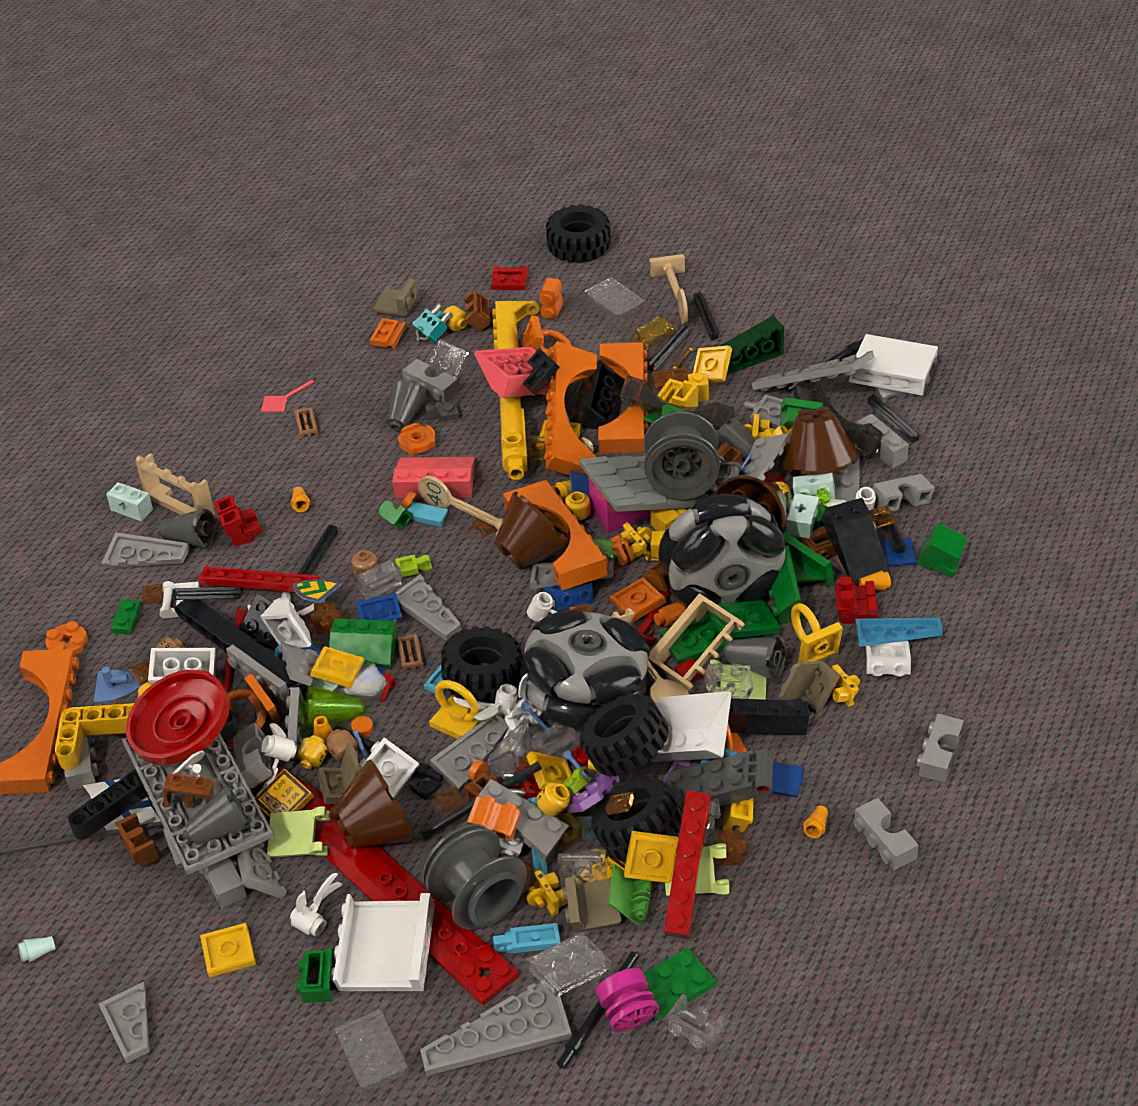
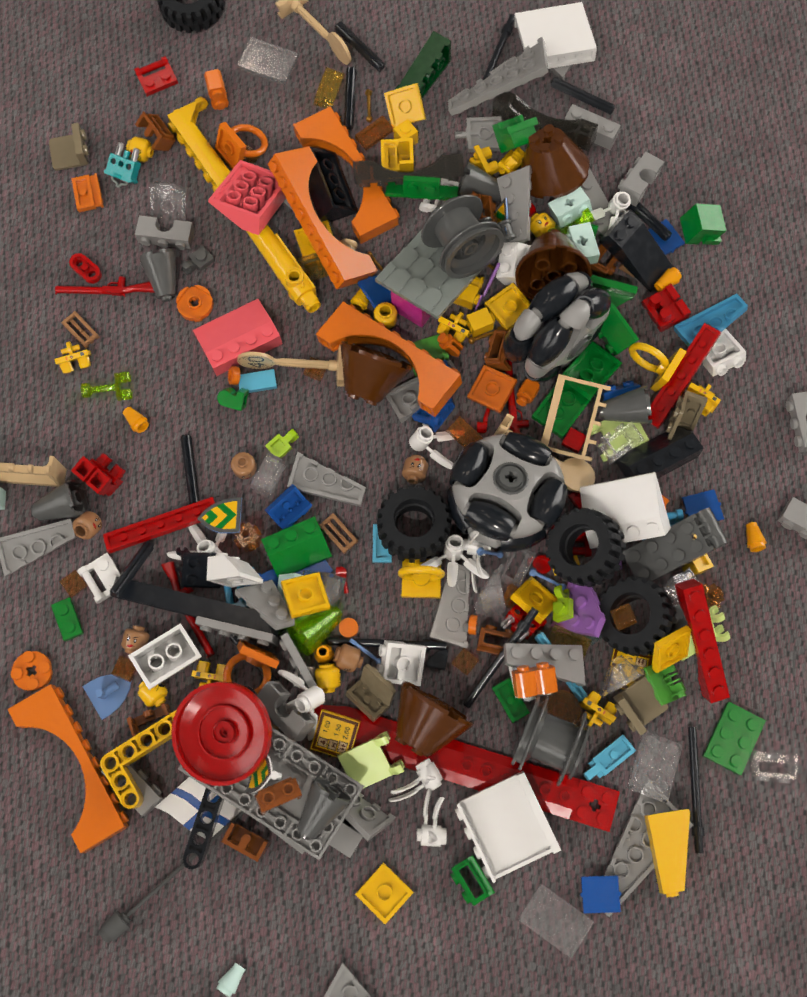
camera: 30 degrees left, 30 degrees up
(197, 553) = (87, 525): none -> medium nougat head
(278, 403) = (36, 319): coral piece -> none
(283, 434) = (65, 361): none -> yellow hips
(303, 476) = (125, 394): none -> clear neon green bar
(341, 858) = (428, 775): none -> white plant
(344, 382) = (86, 268): none -> red plate
(355, 405) = (119, 290): none -> red piece
(431, 1045) = (600, 894): none -> blue piece
(518, 627) = (415, 469): none -> medium nougat head
(529, 1031) = (669, 847): none -> yellow slope
(544, 370) = (283, 192): black plate -> none
(553, 799) = (563, 633): yellow head -> none
(627, 999) = (723, 780): dark pink wheel -> none
(841, 646) = (683, 374): none -> red plate
(882, 516) = (643, 211): clear orange tile -> none

